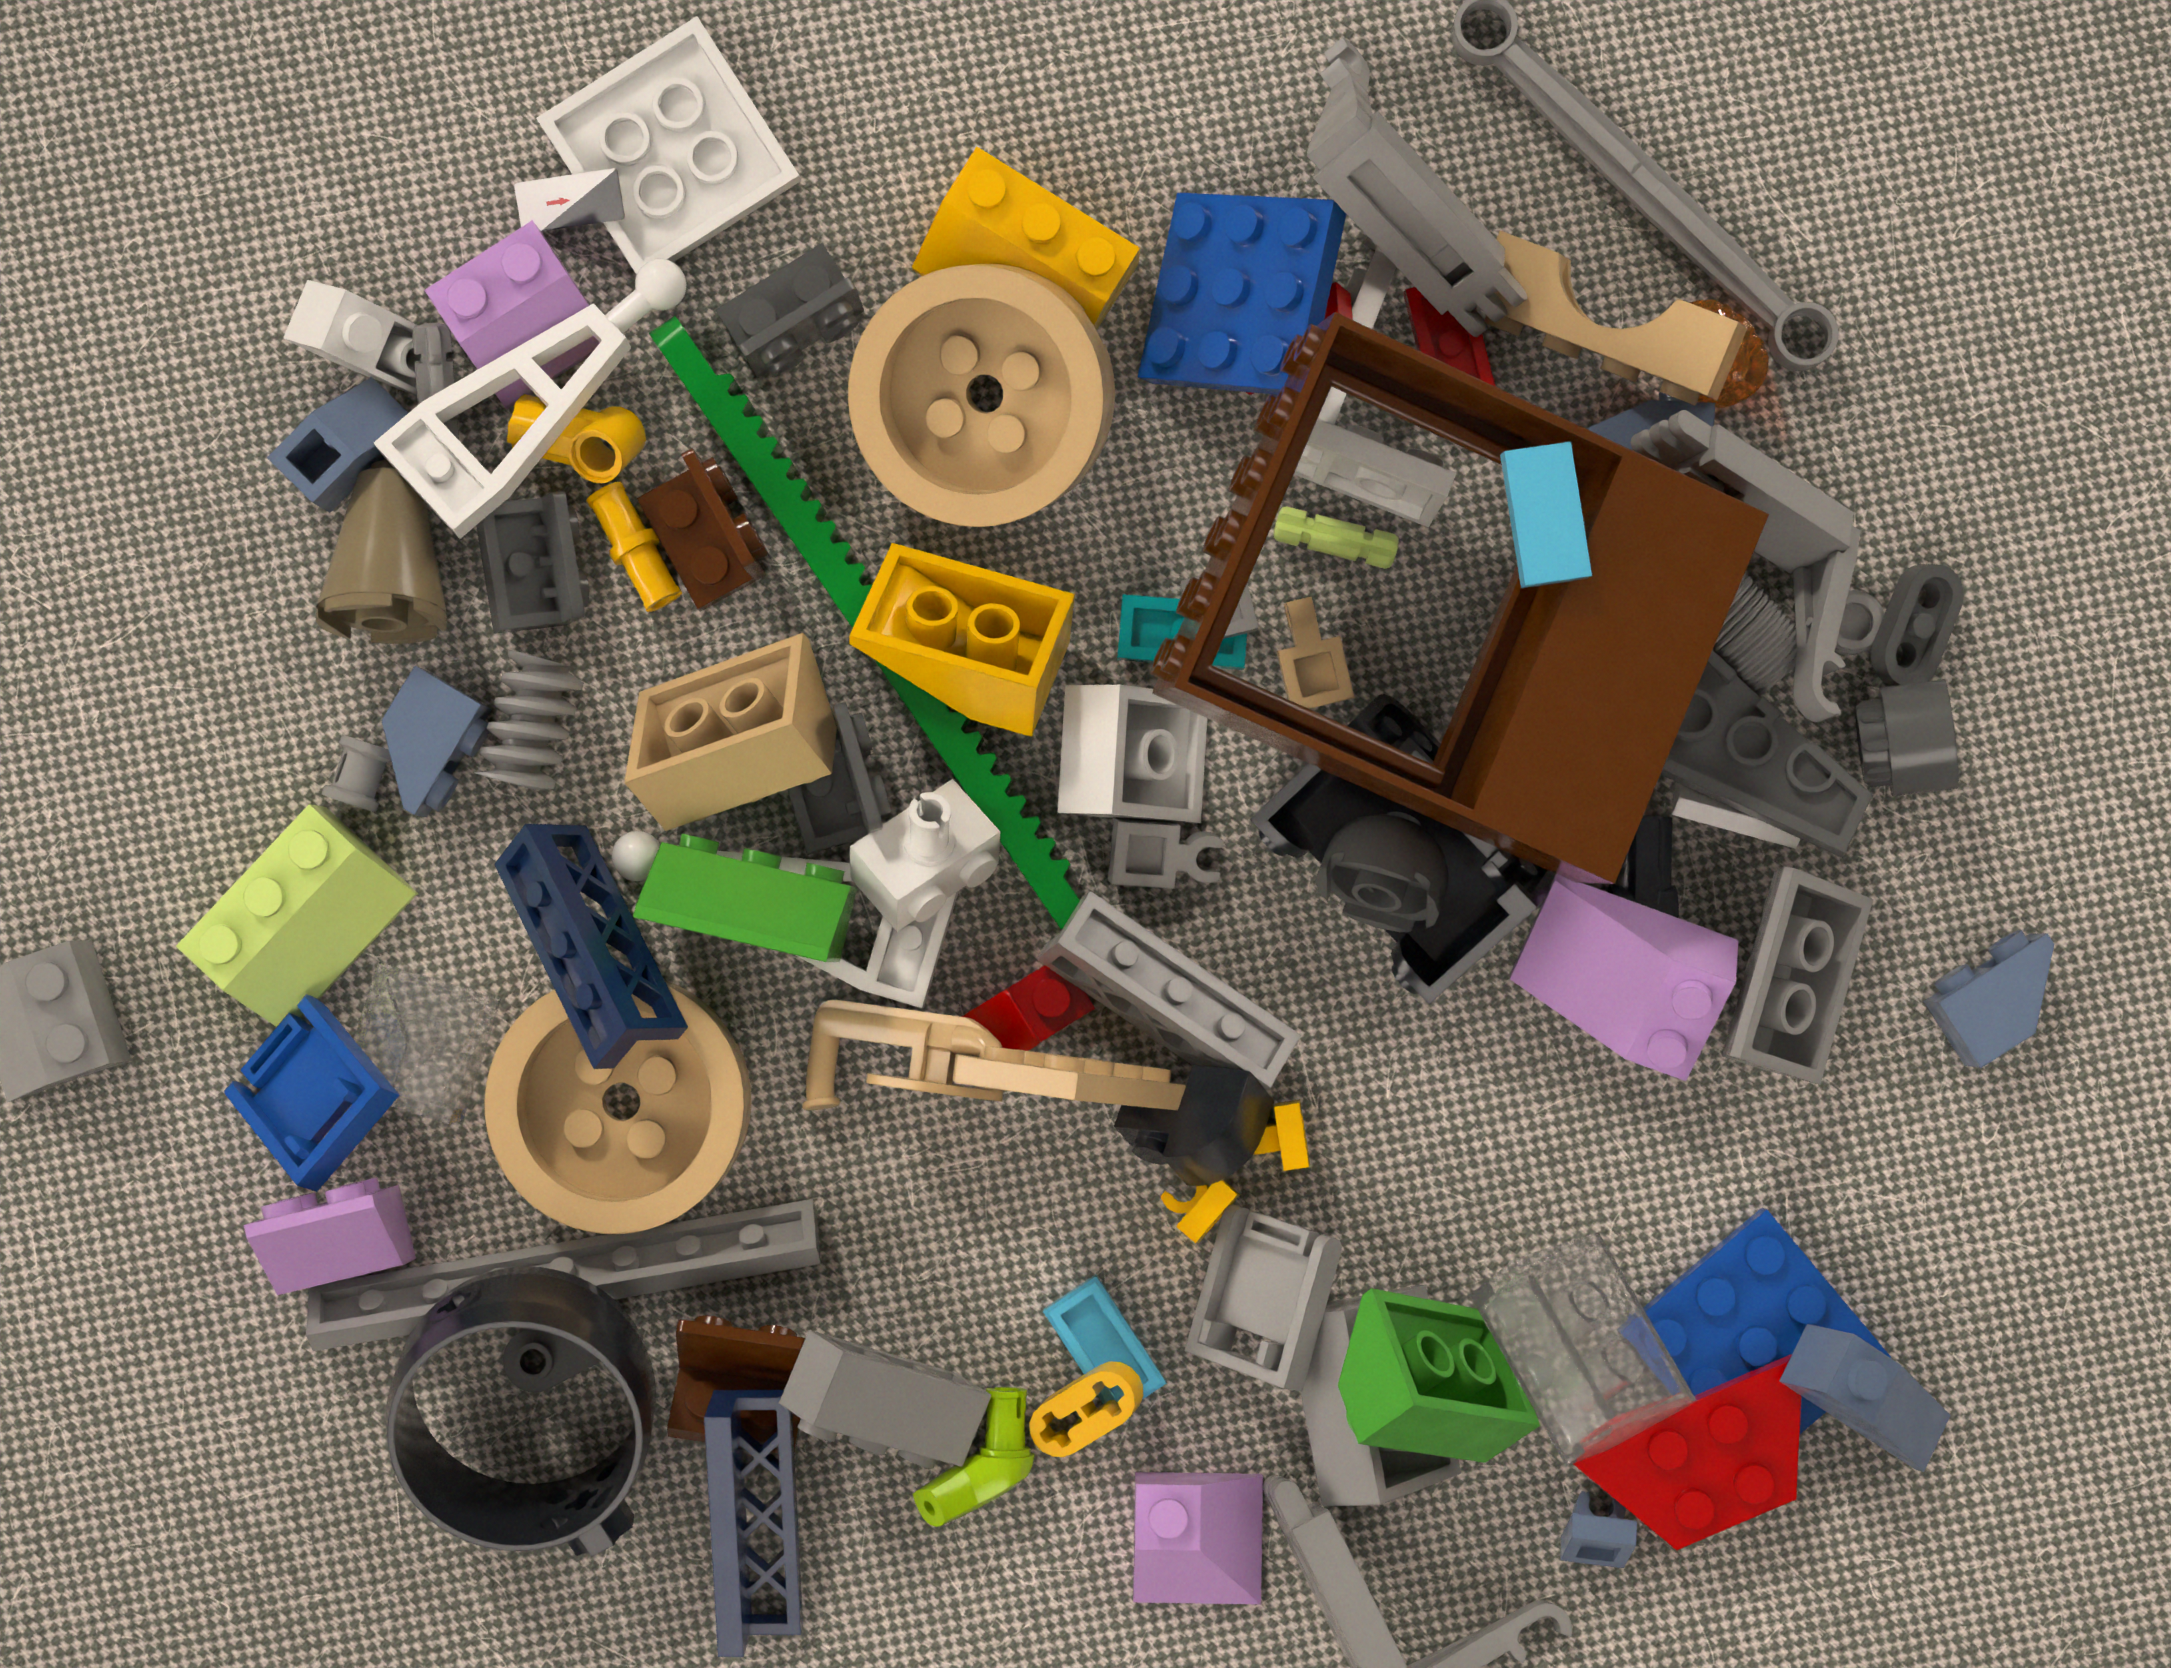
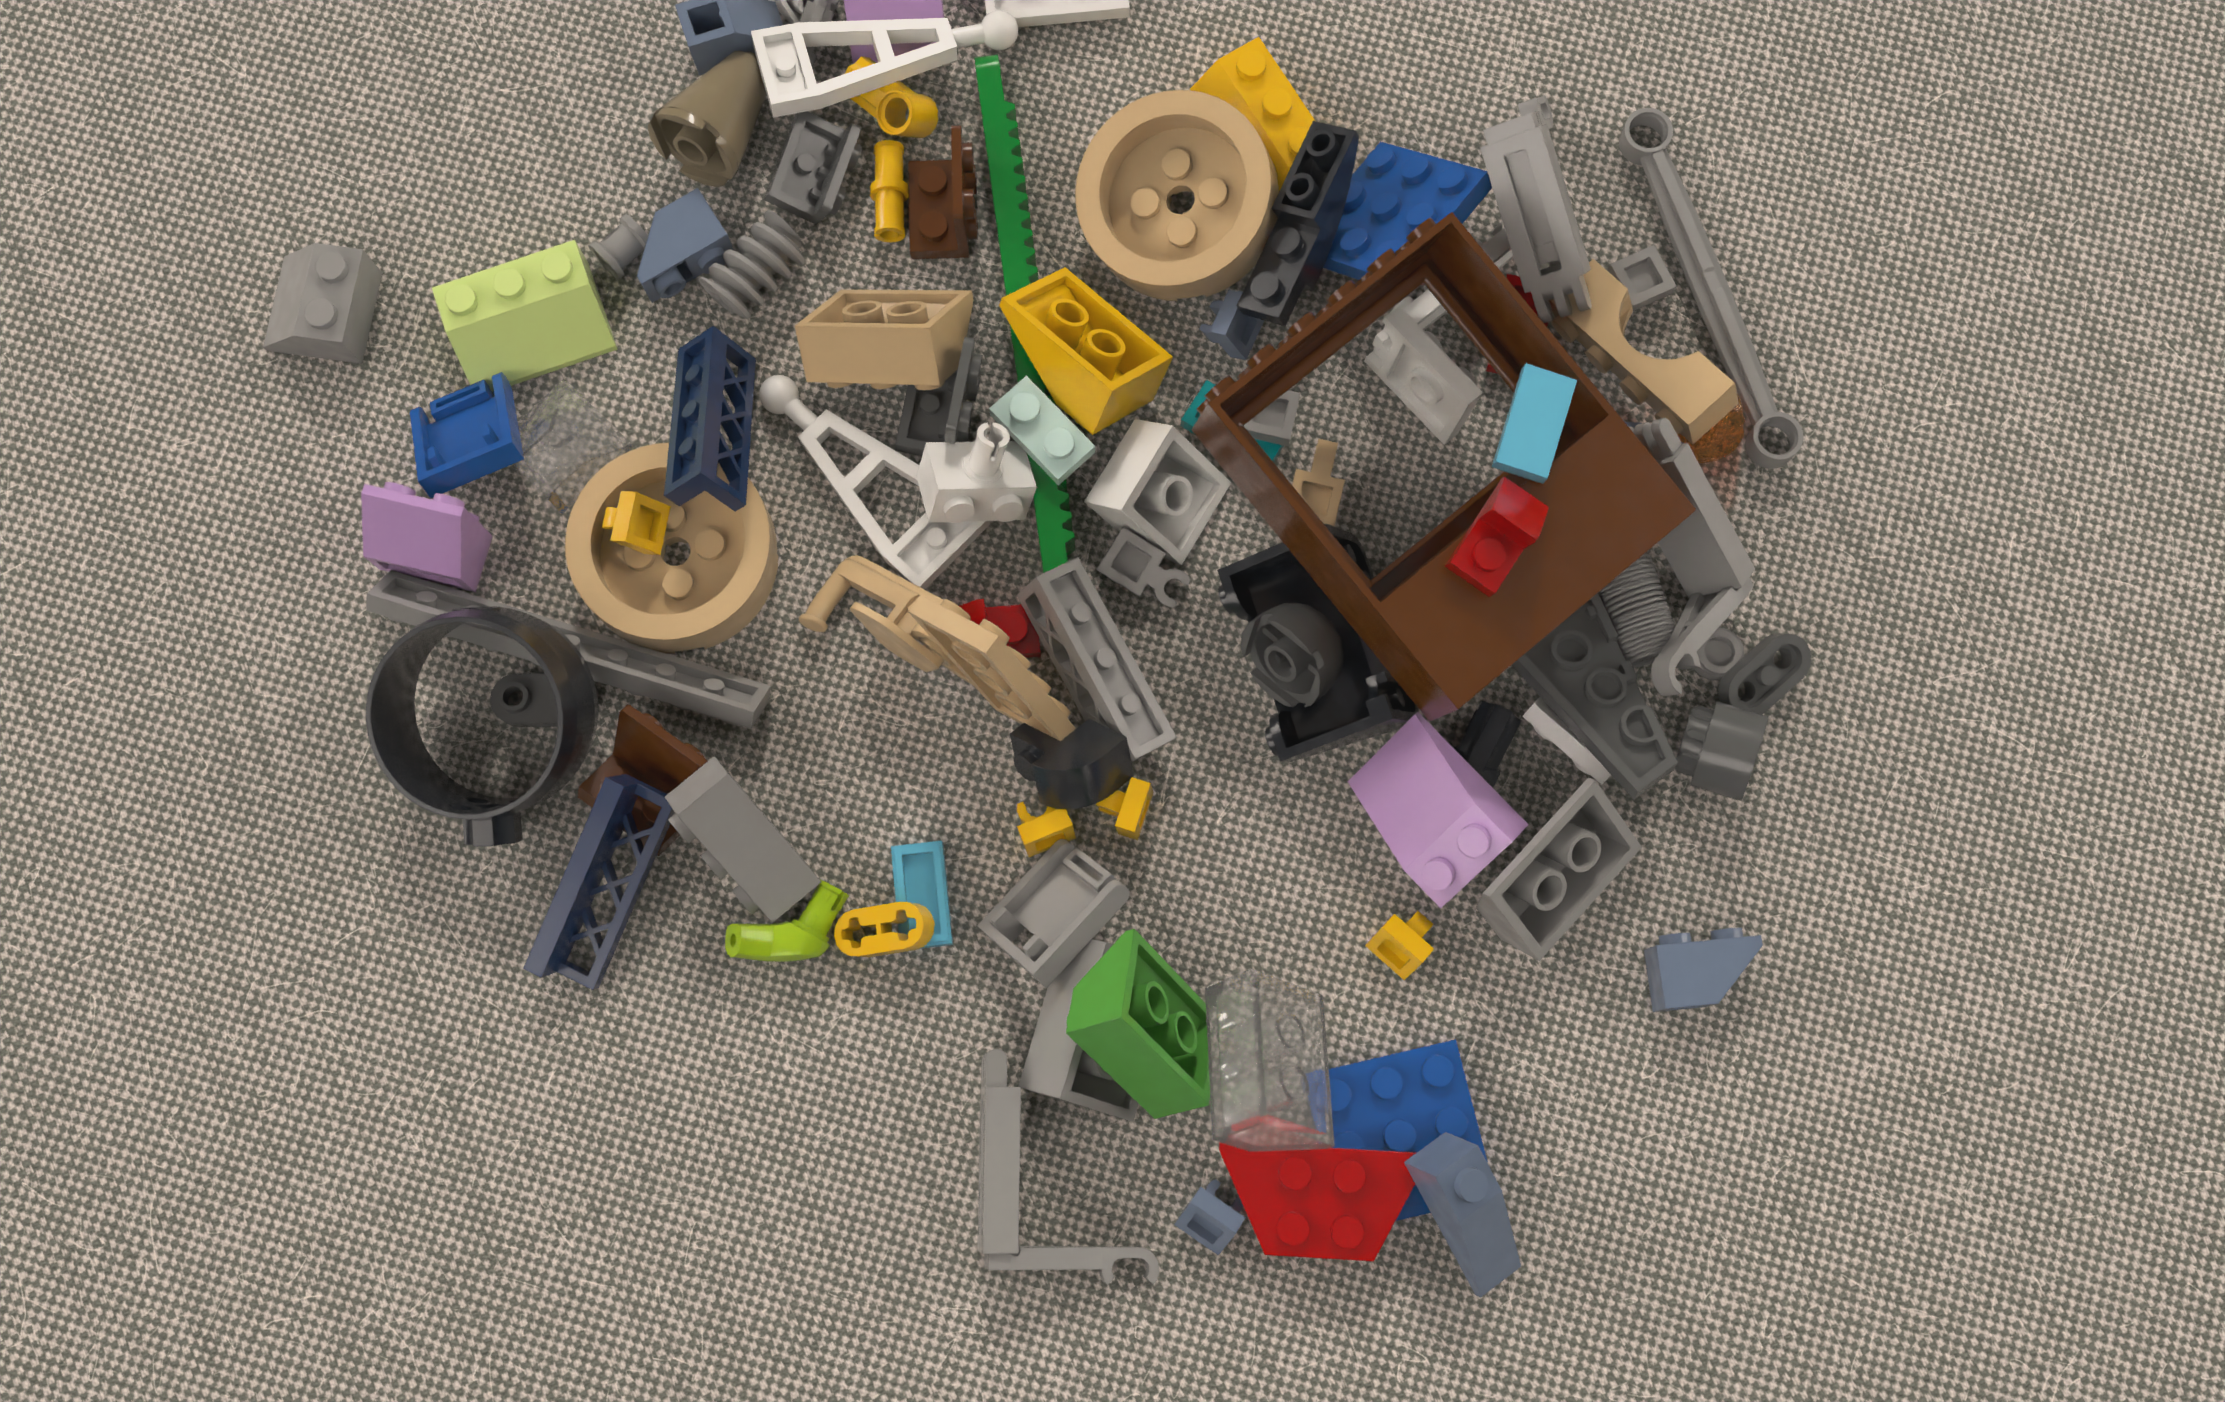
camera: 25 degrees right, 10 degrees down
(568, 1101) = (638, 522): none -> yellow tile
(748, 899) = (835, 448): bright green slope -> none
(791, 312) = (1076, 94): dark grey bracket -> none
(971, 759) = (1042, 430): none -> light aqua plate
(1121, 509) = (1231, 328): none -> sand blue tile
(1150, 359) = (1306, 225): none -> black slope
(1197, 1538) = (914, 1069): lavender slope -> none
(1336, 537) = (1375, 417): yellowish green axle -> none
(1561, 213) = (1644, 277): none -> light grey plate
(1568, 665) = (1498, 536): none -> red slope
(1659, 1135) = (1402, 944): none -> yellow tile

